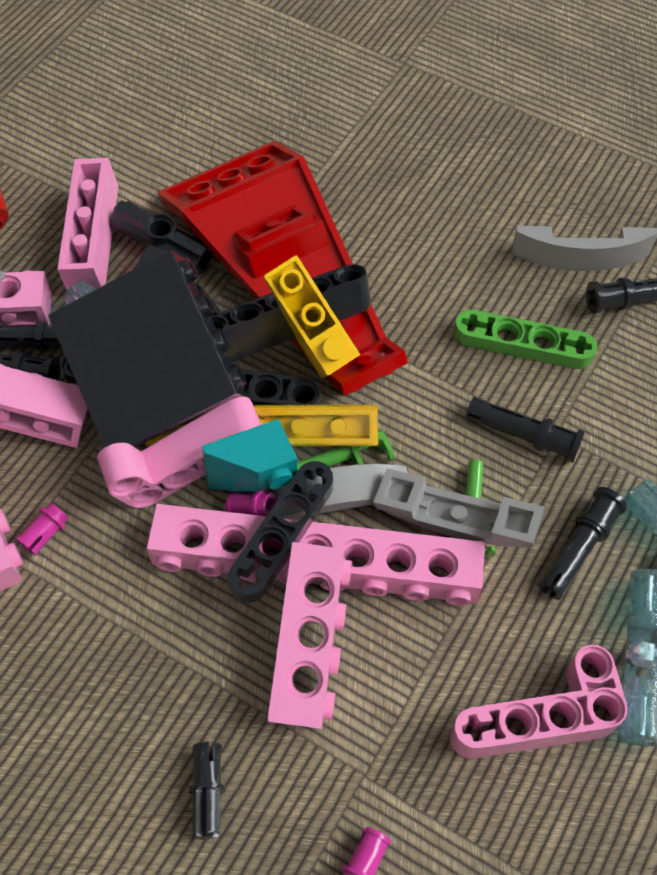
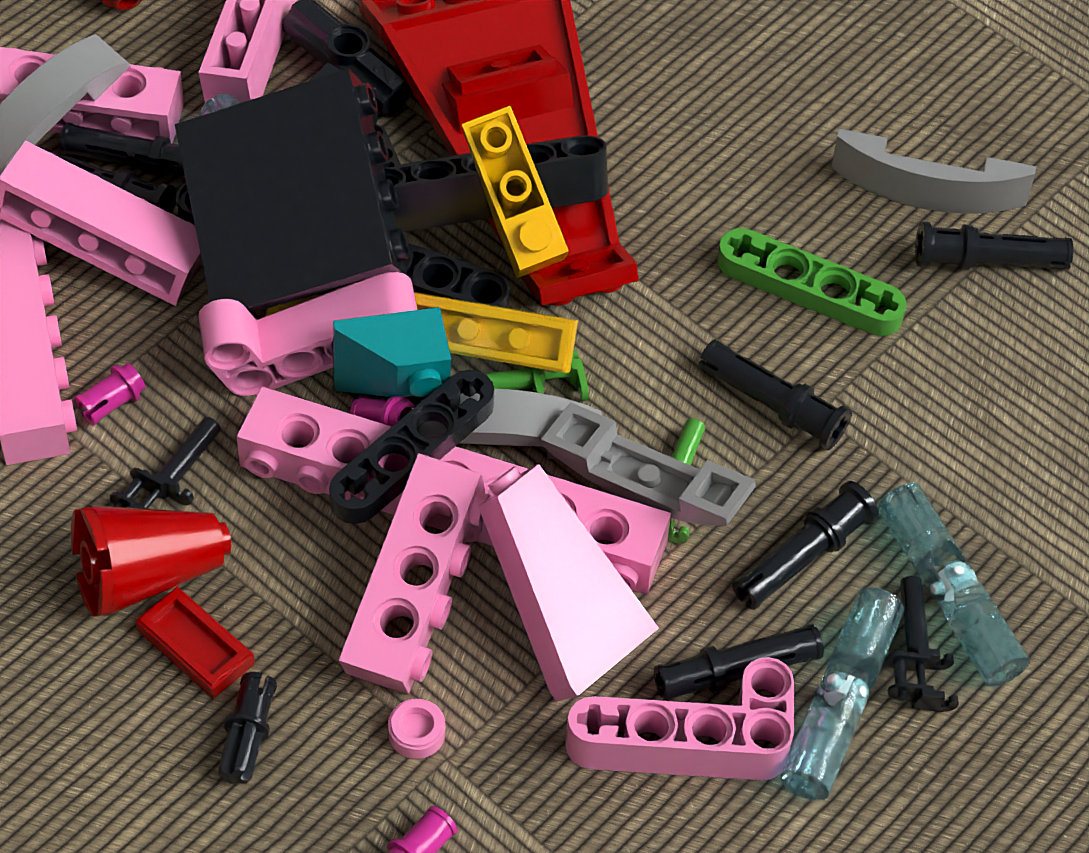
camera: 10 degrees right, 5 degrees down
(94, 660) = (142, 552): none -> red cone
(99, 590) = (166, 480): none -> black piece
(150, 721) = (195, 642): none -> red tile
(336, 756) = (416, 728): none -> bright pink tile
(423, 620) = (562, 583): none -> slope
(548, 655) = (718, 667): none -> black pin

